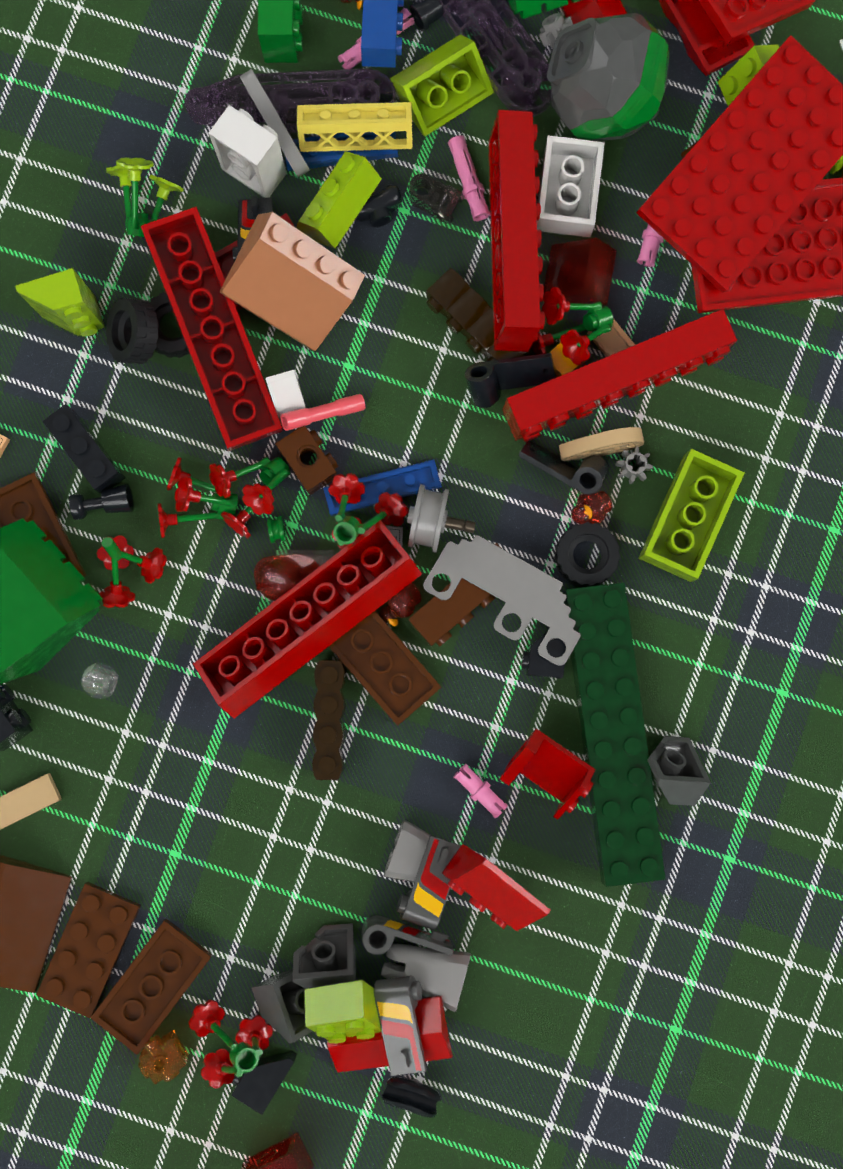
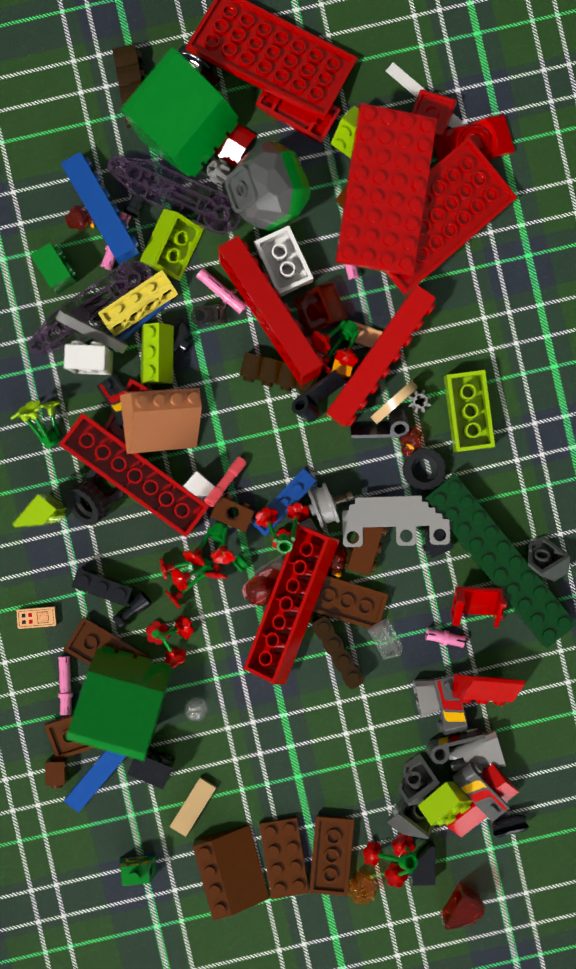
camera: 30 degrees left, 5 degrees up
(401, 744) = (385, 639): none -> clear slope

